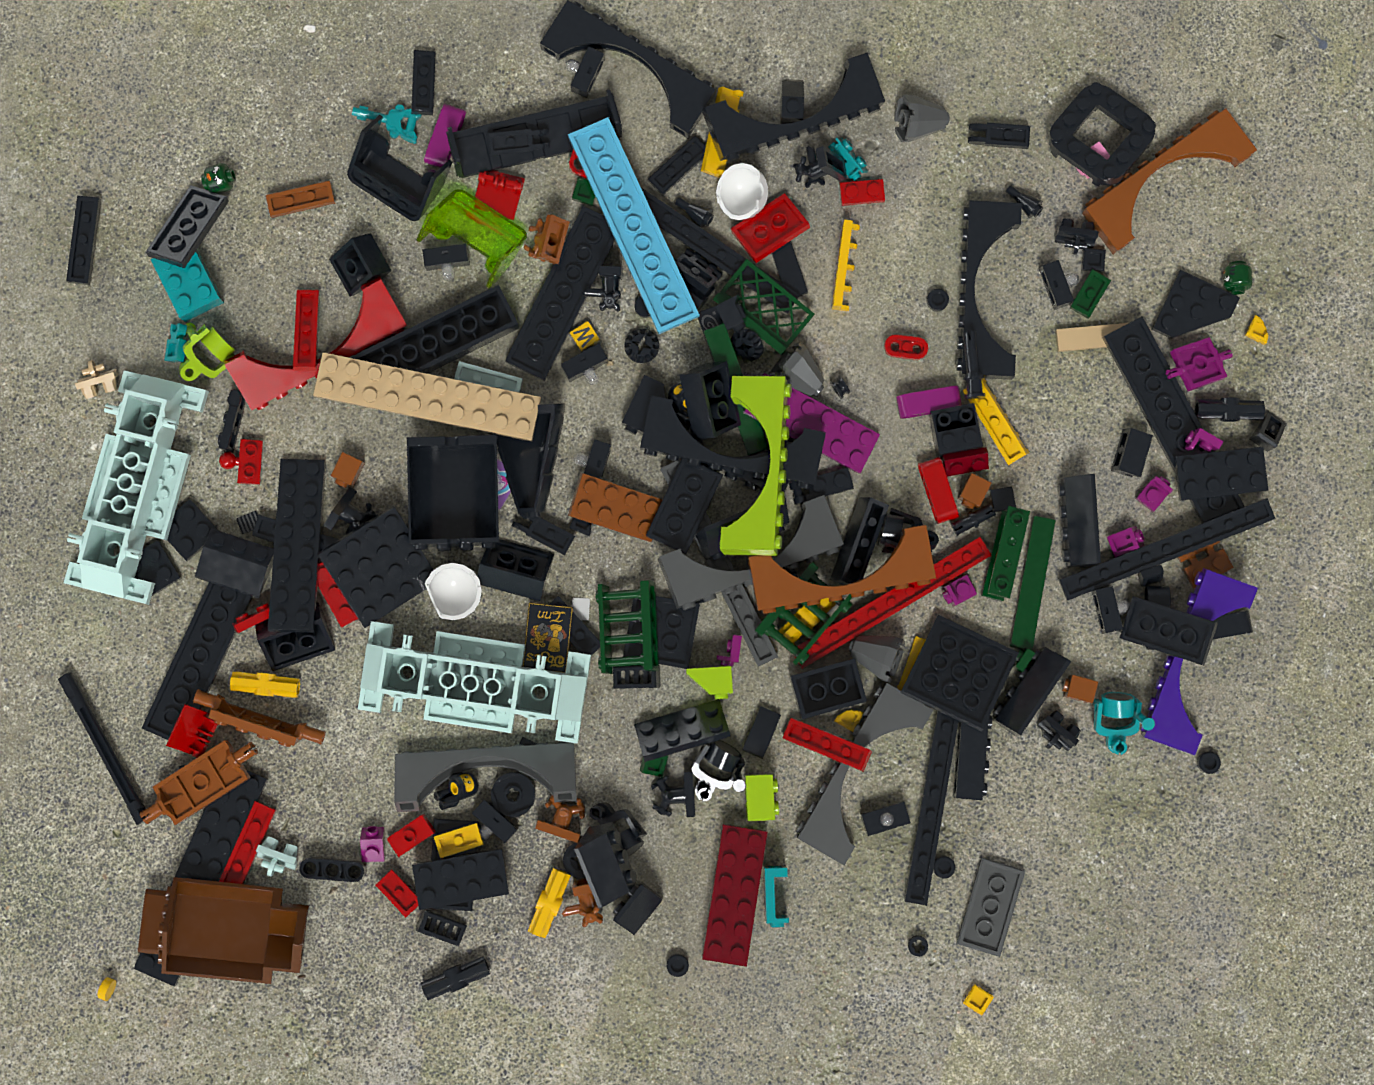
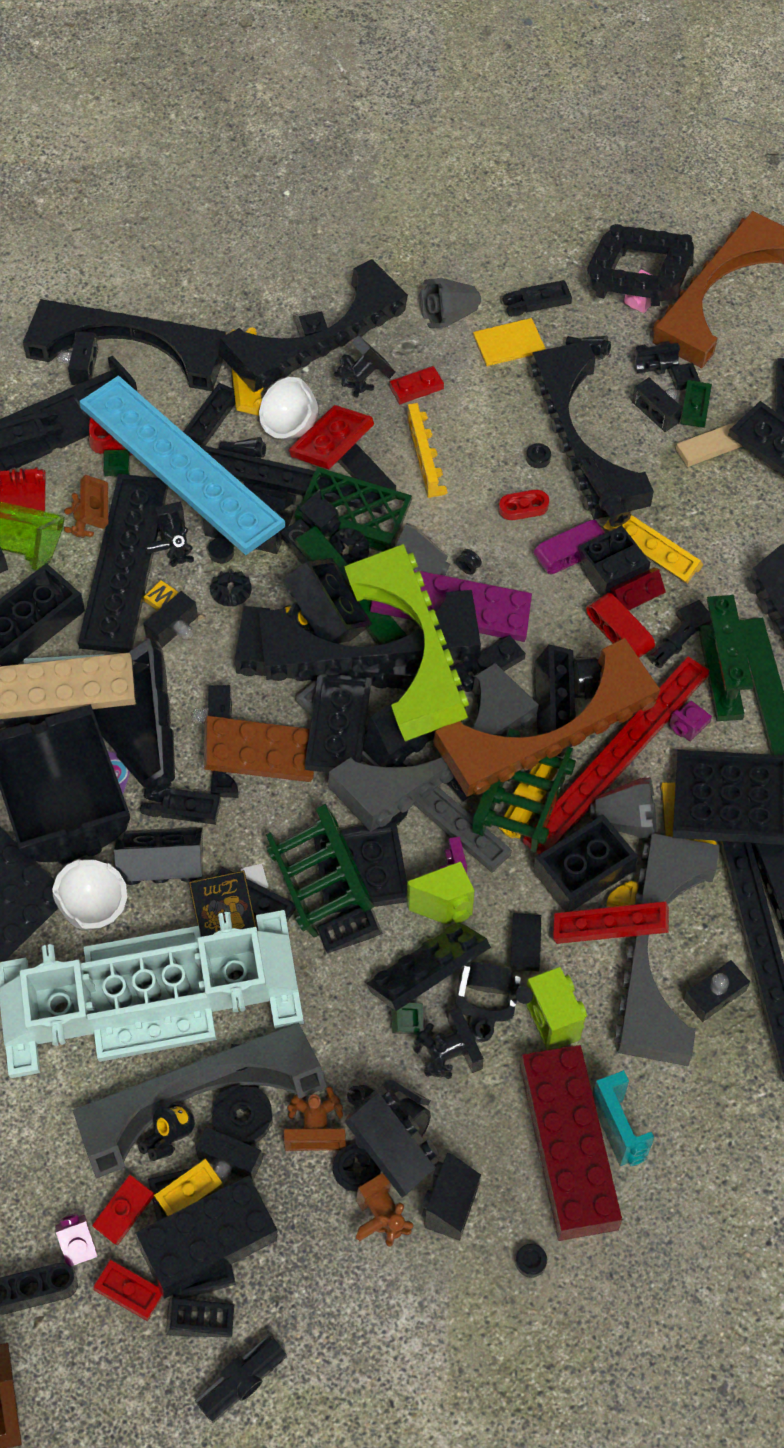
camera: 15 degrees left, 25 degrees down
(549, 903) = (334, 1235): yellow piece -> none
(854, 163) = (398, 360): teal hinge -> none
(958, 171) = (508, 341): none -> yellow piece
(974, 491) = (660, 614): dark orange brick -> none

